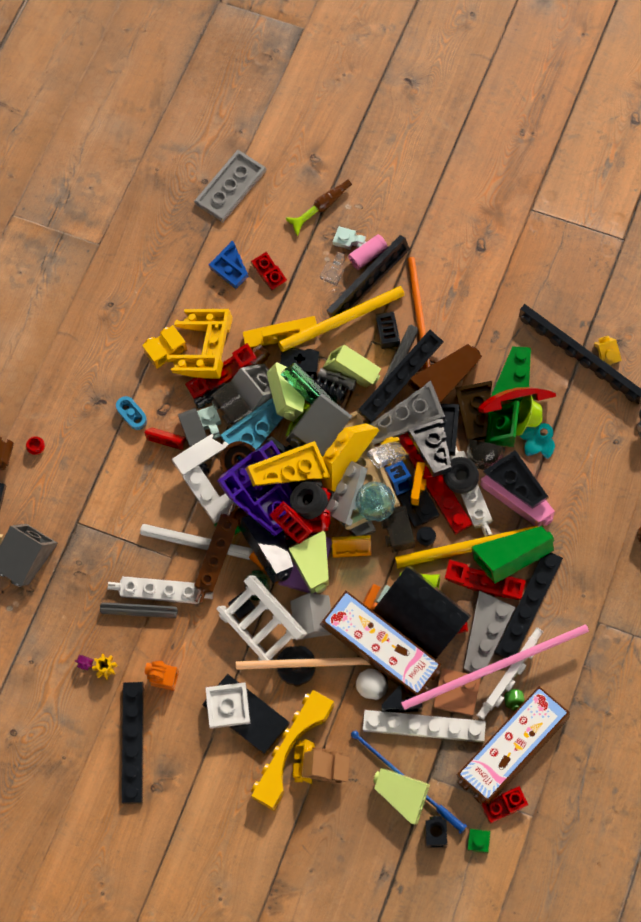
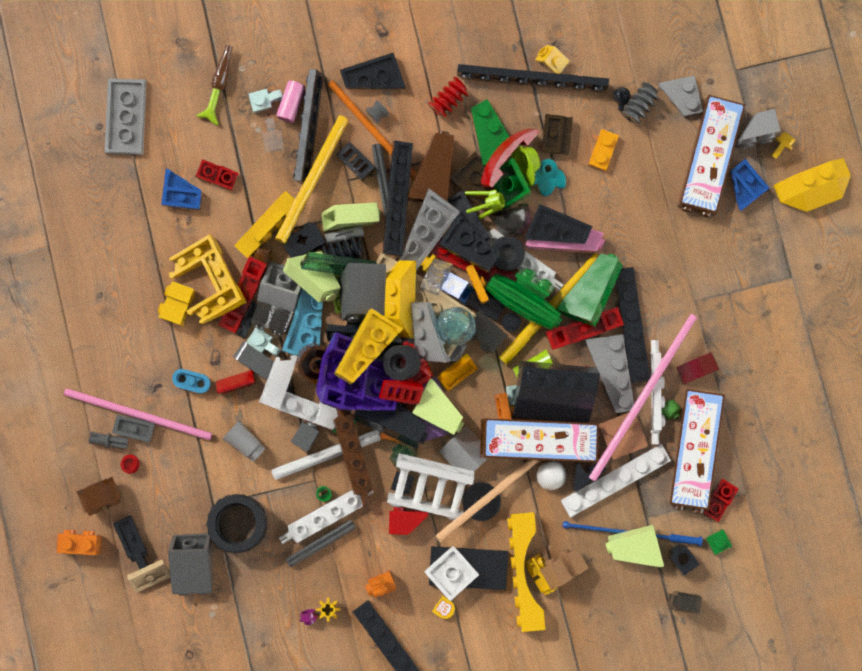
camera: 40 degrees left, 15 degrees up
(32, 416) = (108, 440): none -> dark grey axle
(59, 419) = (133, 428): none -> dark grey plate
(70, 411) = (138, 414): none -> bright pink piece
(71, 526) = (214, 528): none -> black tyre
(137, 485) = (244, 441): none -> light grey plant
(170, 565) = (324, 497): none -> green hinge
(189, 515) = (305, 436): none -> dark grey brick
(201, 733) = (444, 608): none -> tile
(220, 638) = (404, 522): none -> red slope
(411, 868) = (685, 602): none -> clear smoke brick
(432, 302) = (377, 112): none -> dark grey wheel
(450, 272) = (374, 74): none -> black wing
(452, 519) = (526, 297): none -> green plate
(478, 425) = (494, 202): none -> lime plant
(498, 325) = (449, 97): none -> red piece
(562, 678) = (697, 368): none -> dark red slope
(570, 411) = (556, 134): none -> dark brown plate
(602, 448) = (603, 150): none -> light orange plate

